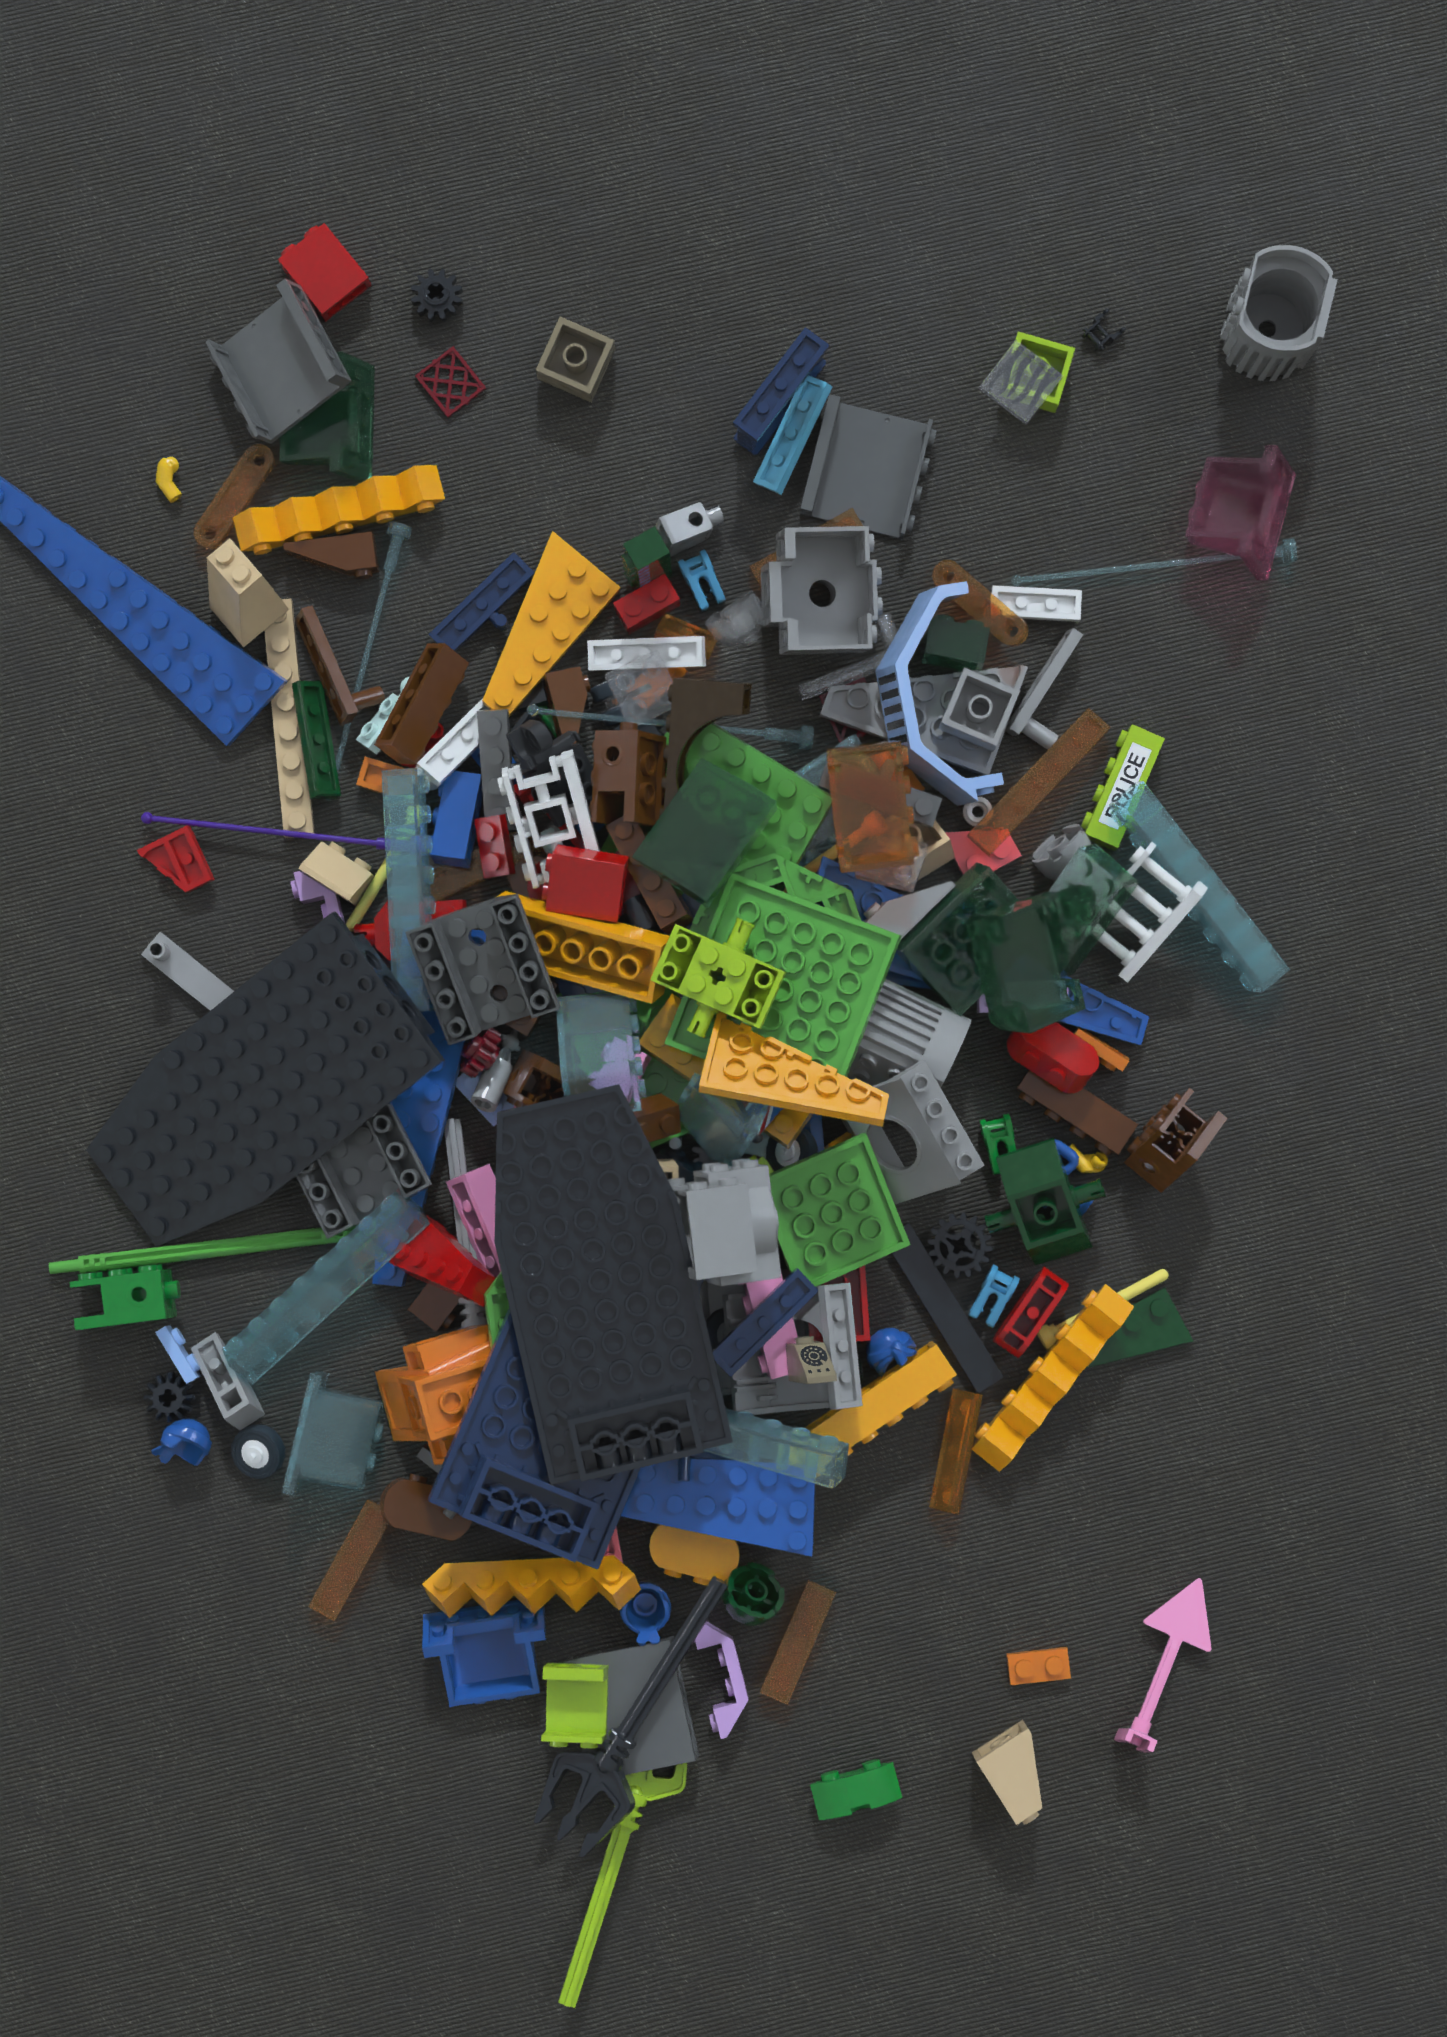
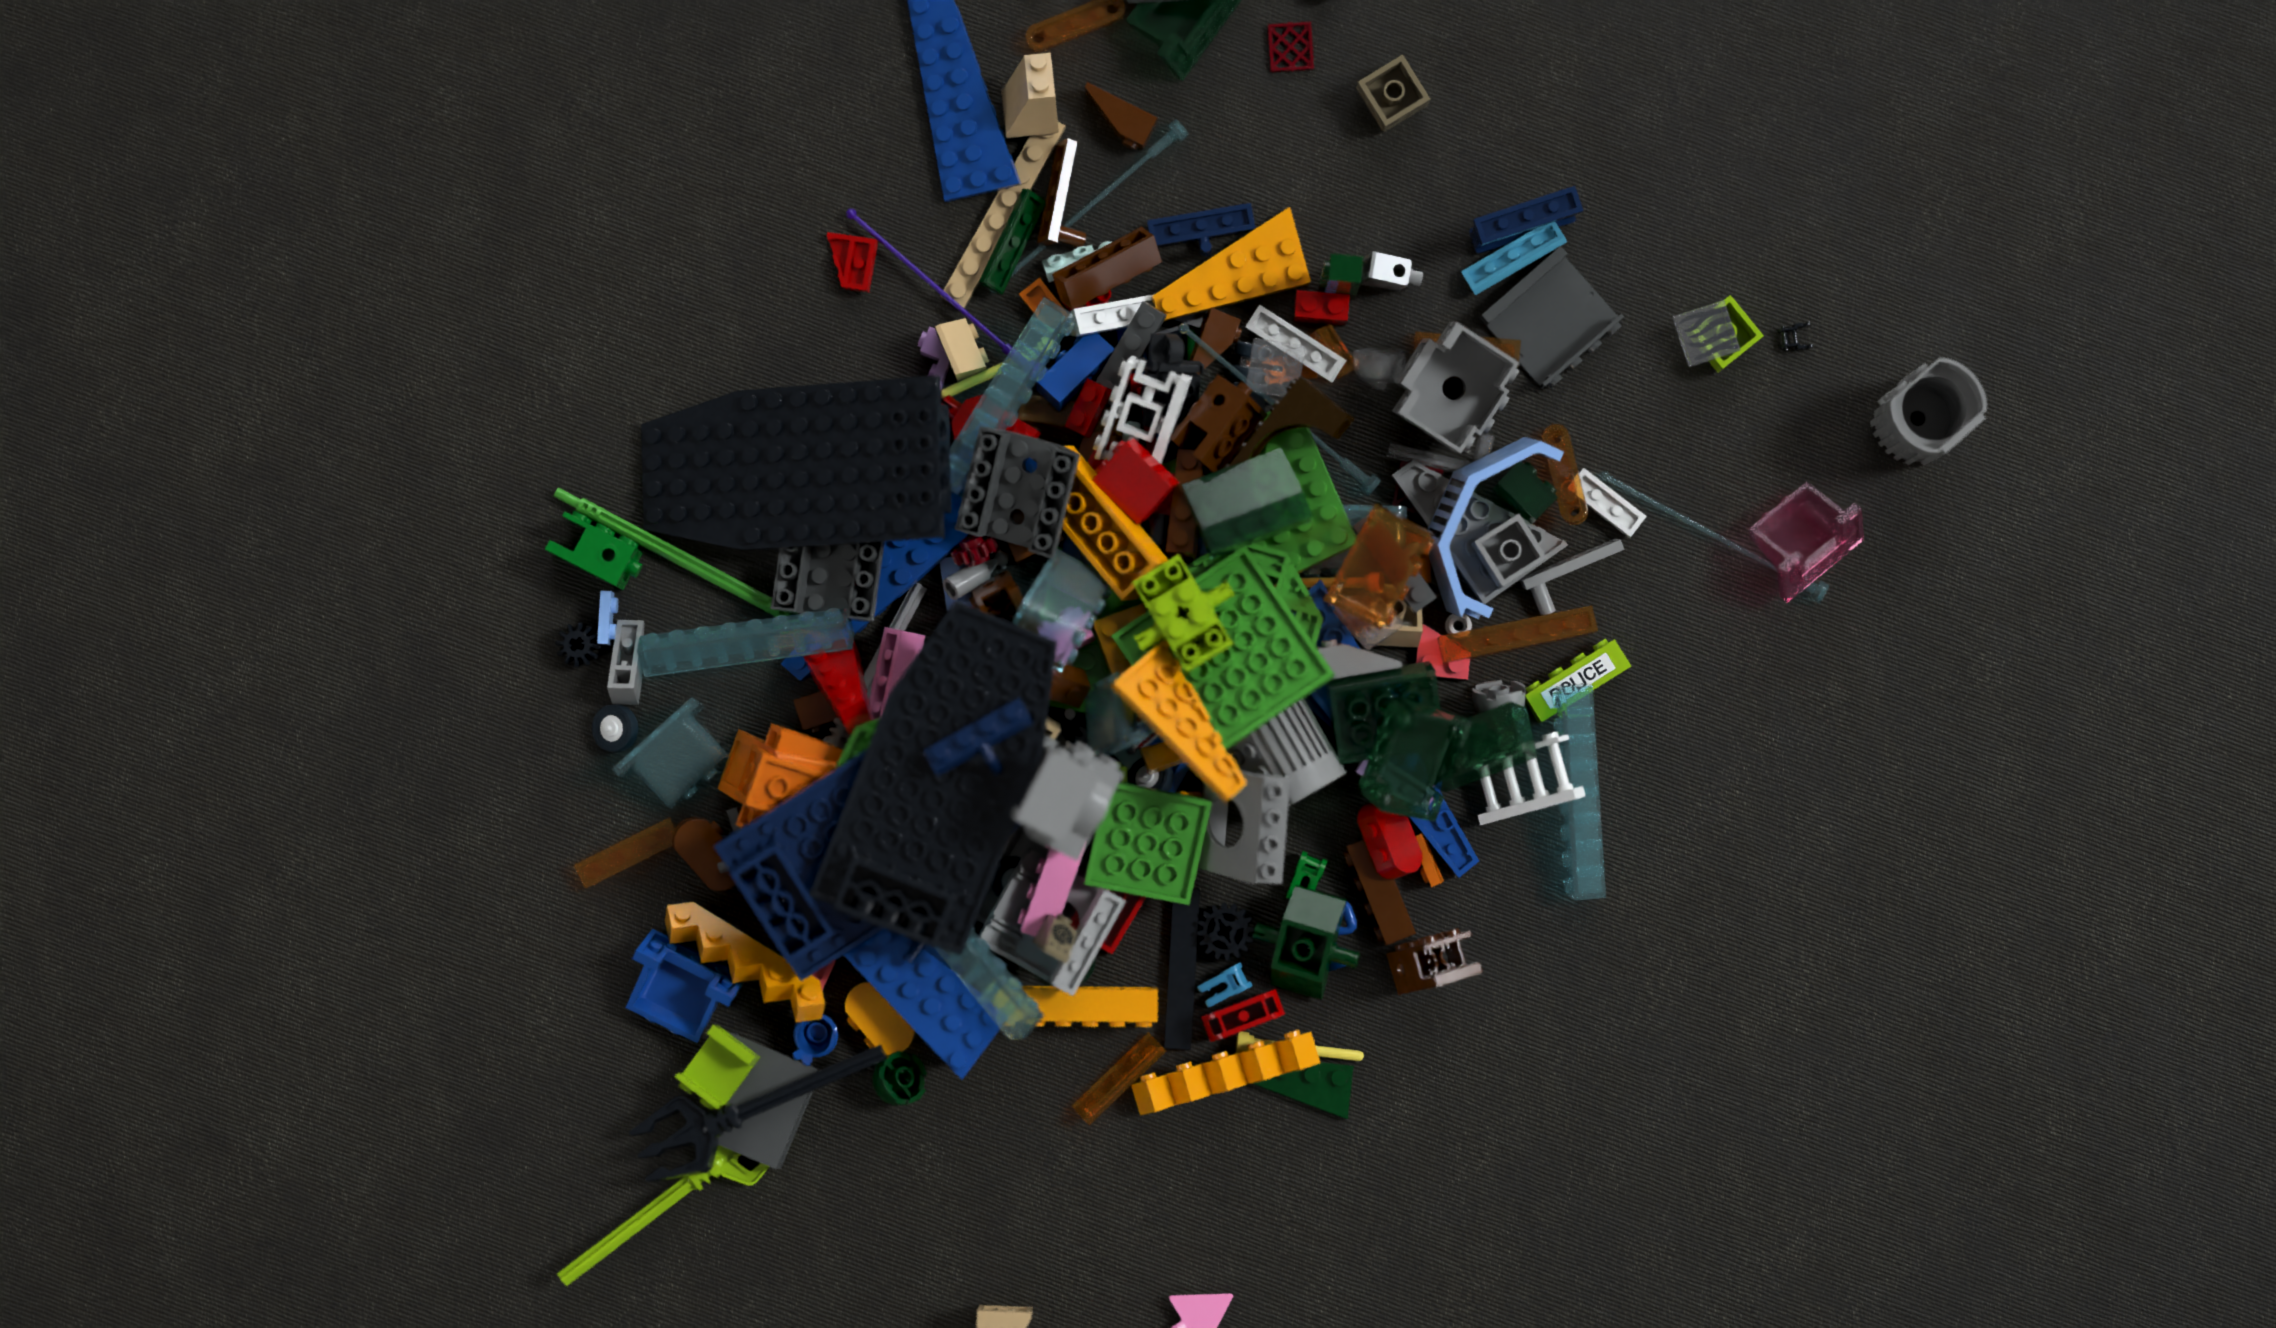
camera: 30 degrees right, 0 degrees up
(186, 971) = (802, 345): light grey piece -> none
(186, 1439) = (568, 682): blue hat -> none
(339, 509) = (1145, 85): light orange brick -> none
(609, 1226) = (979, 738): none -> dark blue plate
(705, 572) = (1380, 313): dark azure piece -> none
(725, 1713) = (823, 1152): lavender slope -> none
(763, 1322) = (1043, 886): dark blue plate -> none
(797, 1642) = (908, 1136): clear orange plate -> none
(862, 1788) = (873, 1271): green brick -> none
(889, 1345) = (1121, 967): blue hat -> none
(1038, 1666) = (1071, 1276): orange plate -> none
(1090, 1162) = (1361, 937): yellow arm -> none

